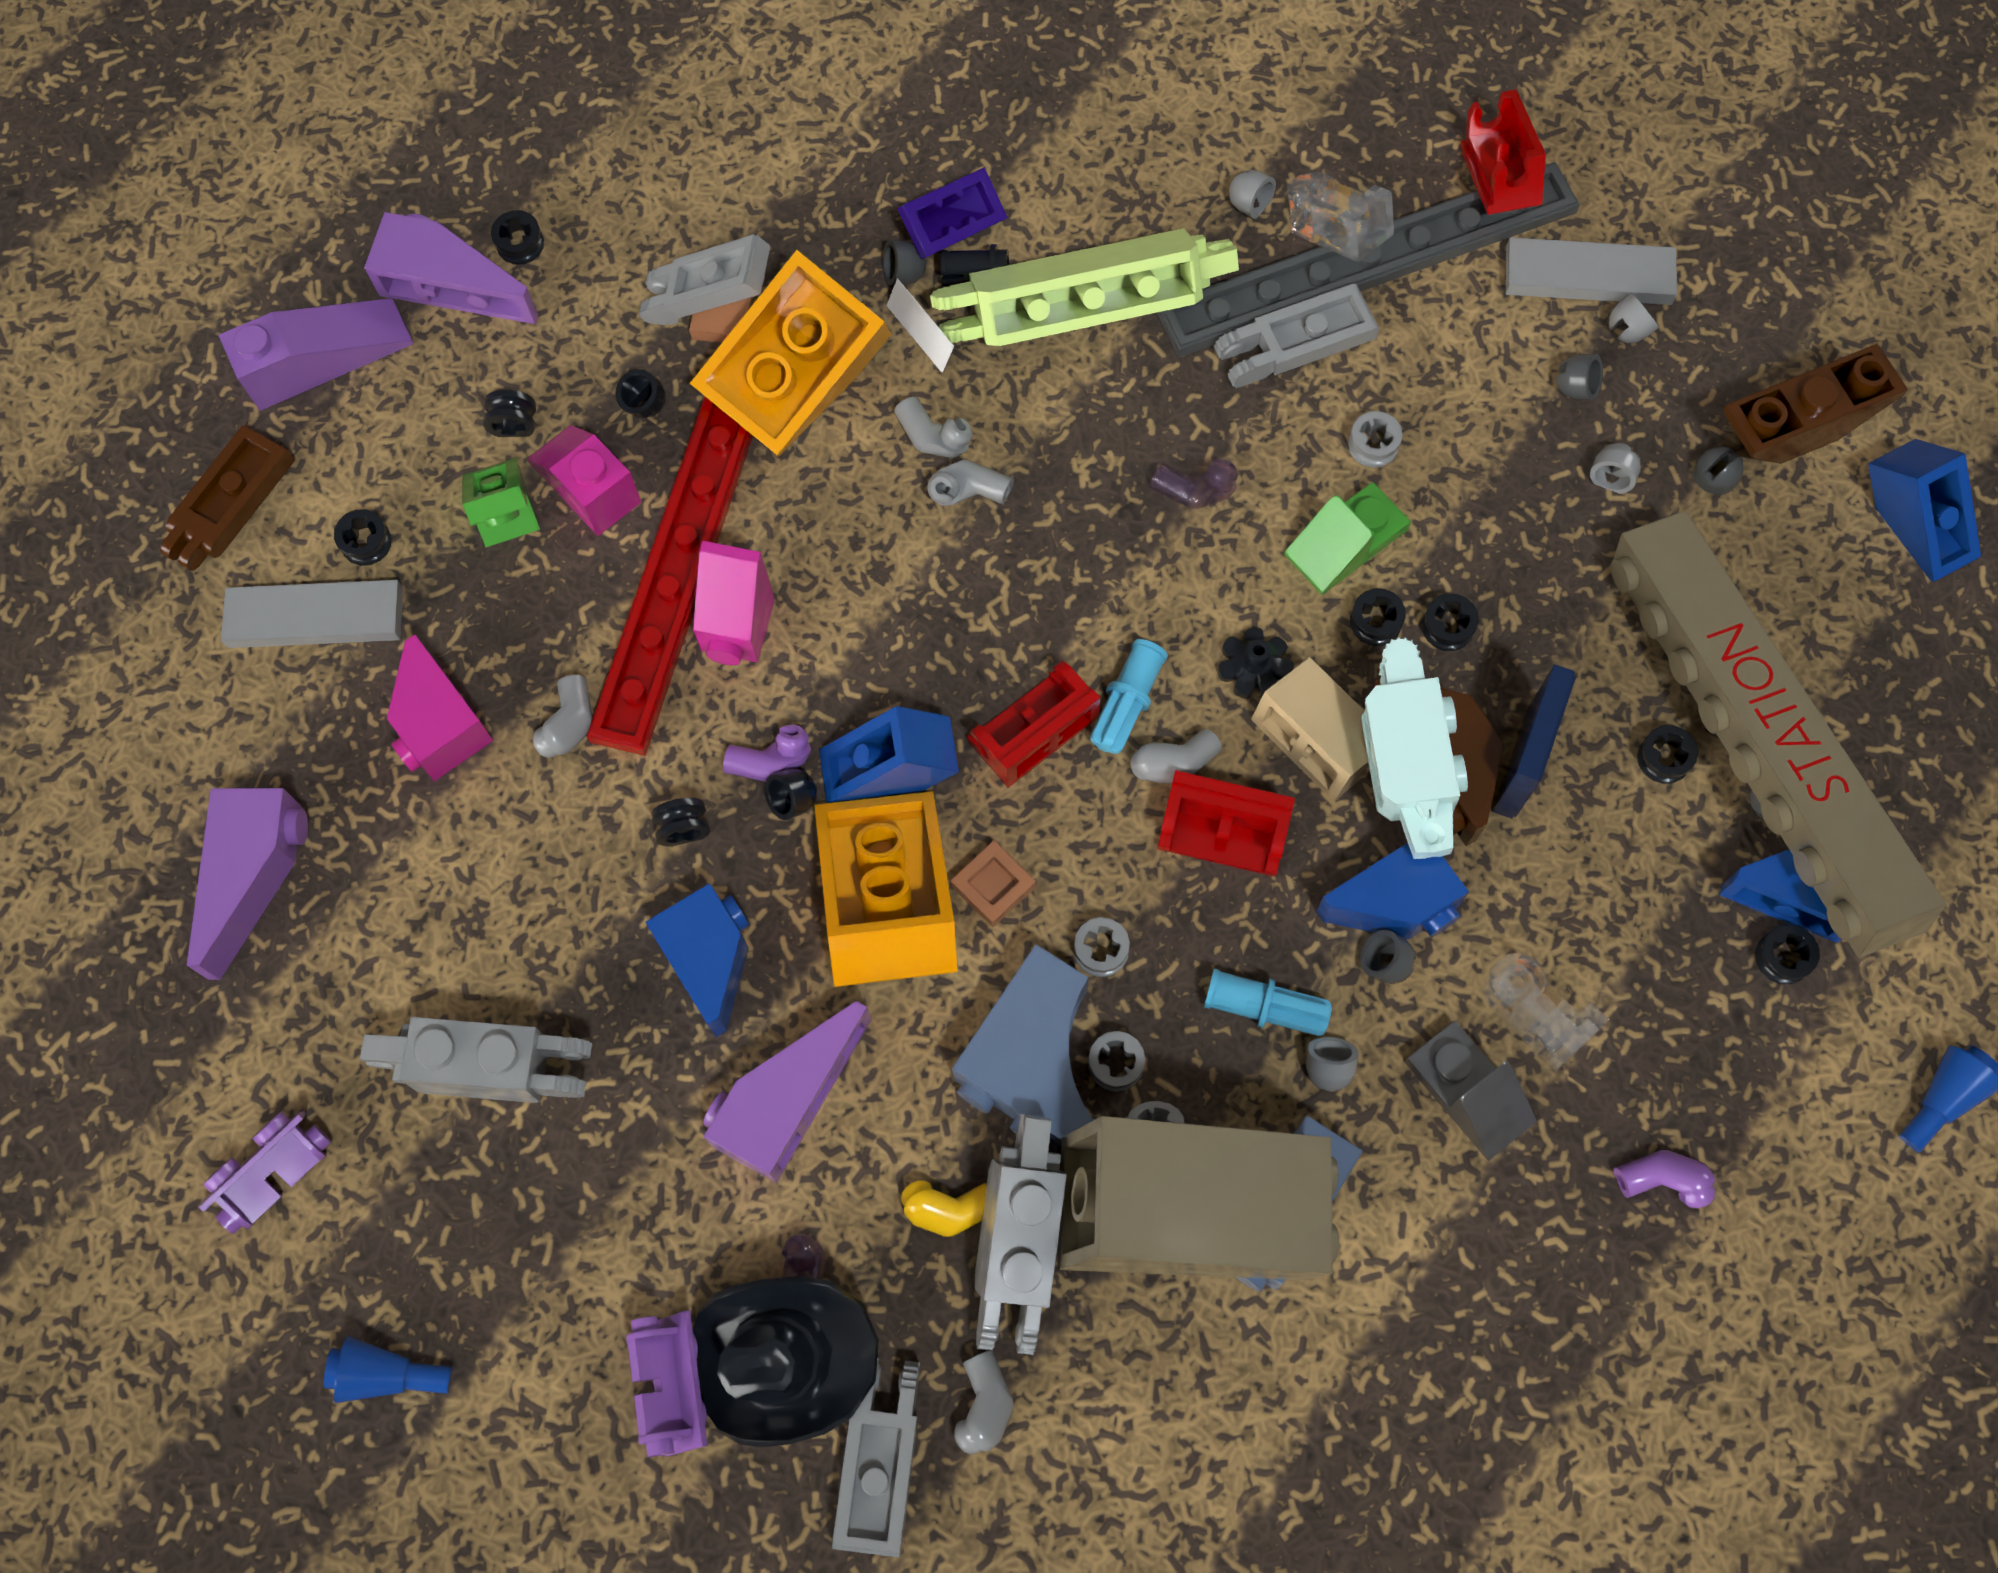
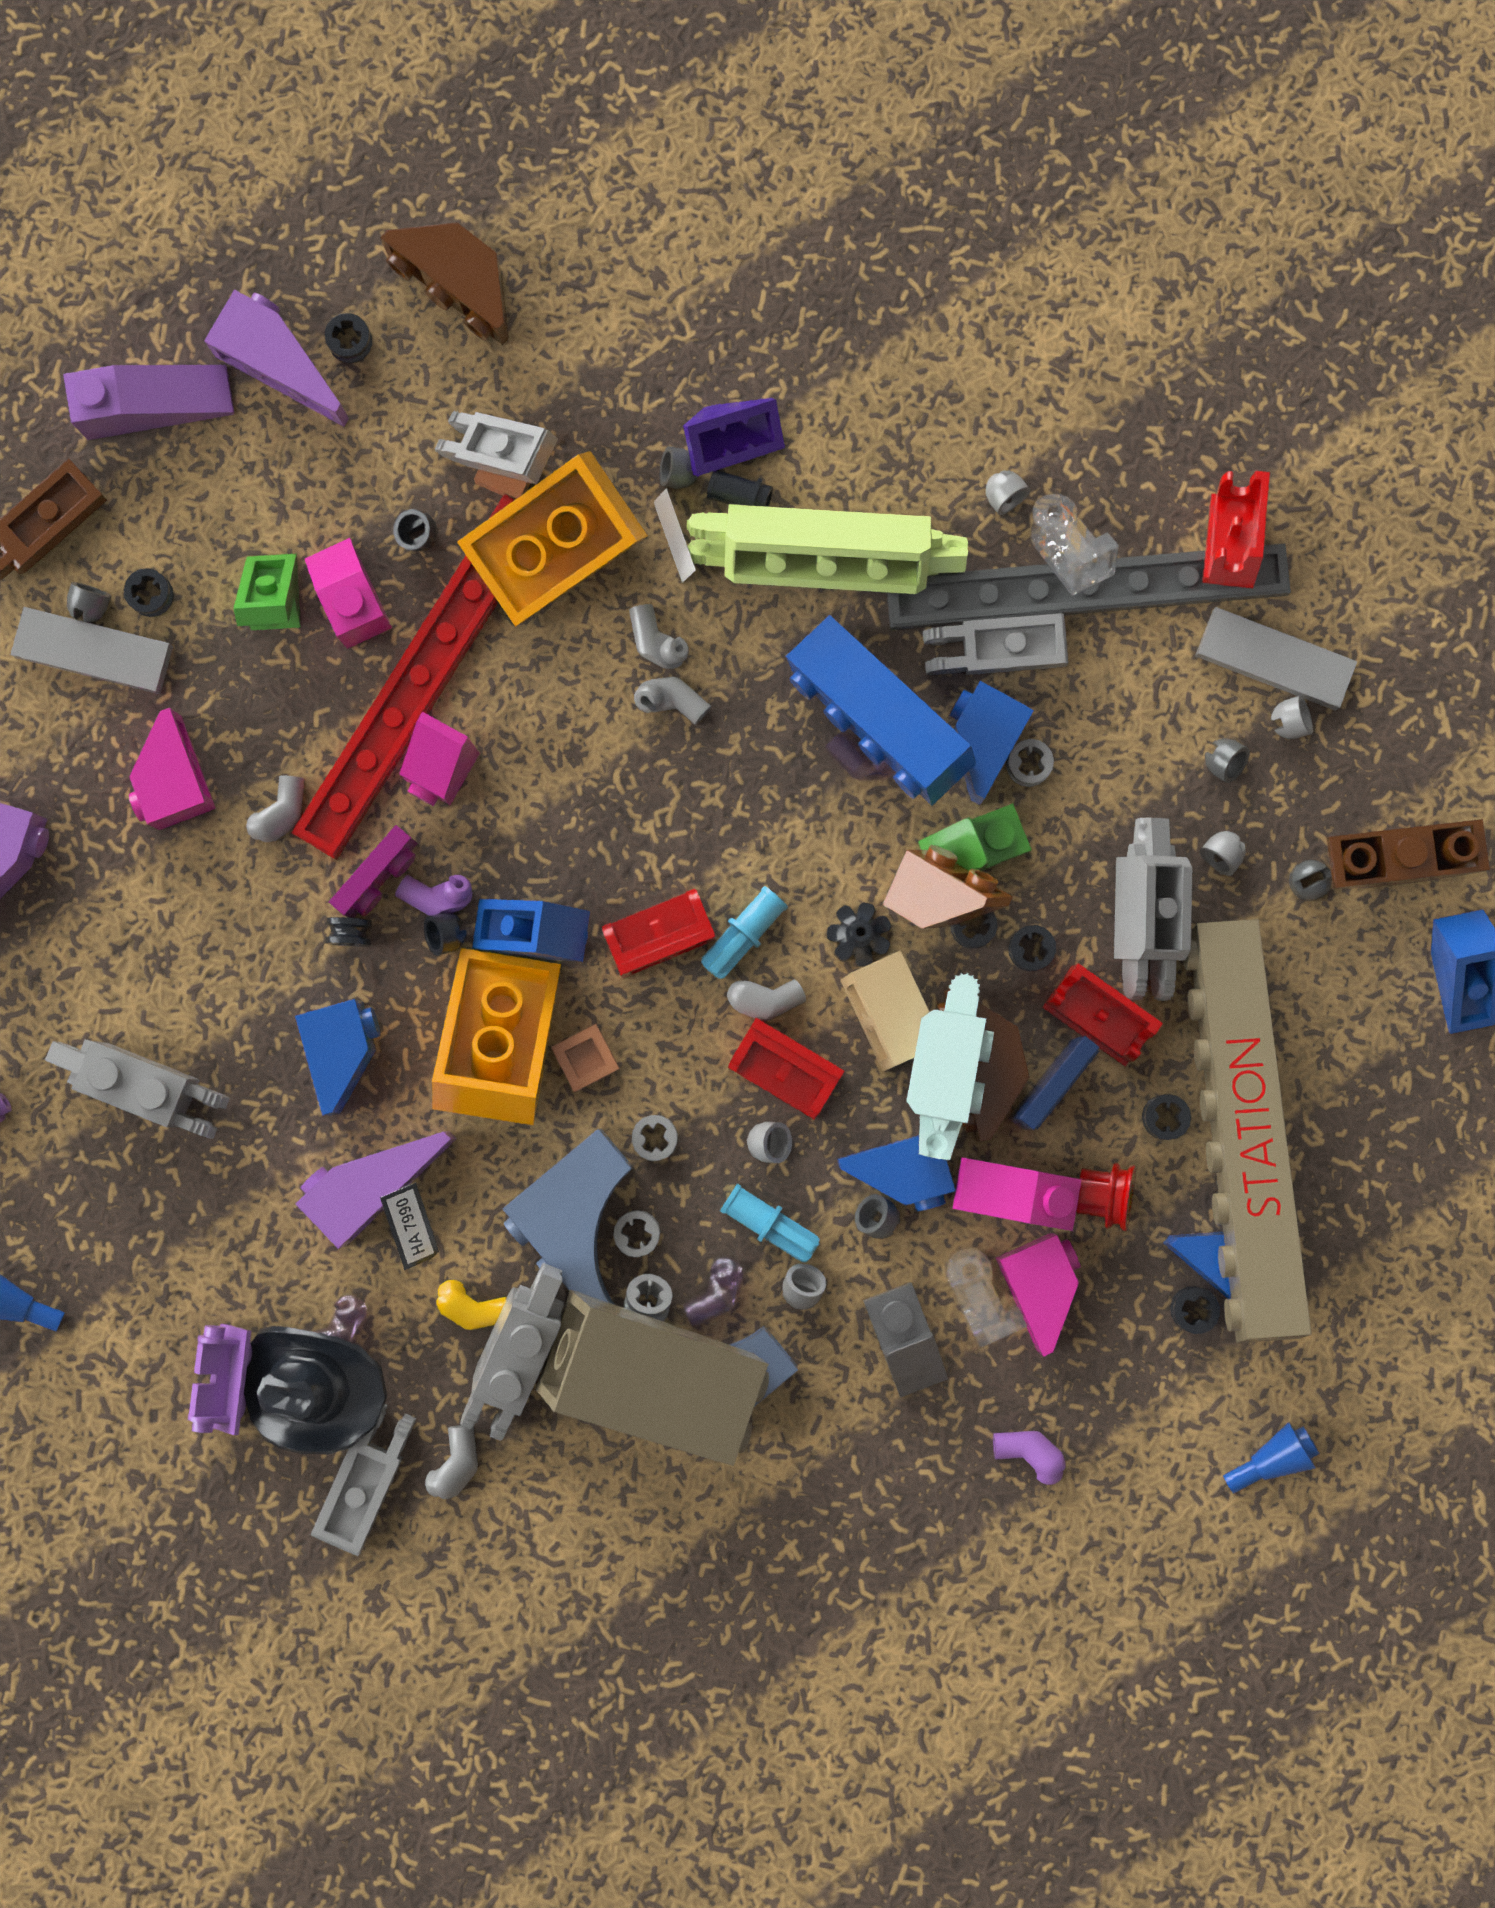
camera: 15 degrees right, 15 degrees up
(295, 560) = (87, 599): none -> dark grey hinge
(509, 414) = (298, 515): black bush -> none
(610, 142) = (456, 271): none -> reddish brown slope
(705, 727) = (361, 890): none -> magenta plate
(846, 1128) = (409, 1225): none -> sticker
(1202, 419) = (880, 711): none -> blue brick
(1235, 911) = (770, 1142): none -> light grey hinge
(1237, 1093) = (721, 1294): none -> arm
(1319, 421) = (992, 727): none -> blue slope
(1335, 582) = (939, 892): none -> slope
(1531, 646) = (1101, 1014): none -> red hinge
(1541, 875) = (1017, 1194): none -> dark pink slope
(1567, 540) = (1152, 911): none -> light grey hinge
(1611, 969) = (1042, 1286): none -> dark pink slope
(1639, 852) = (1108, 1195): none -> red piece

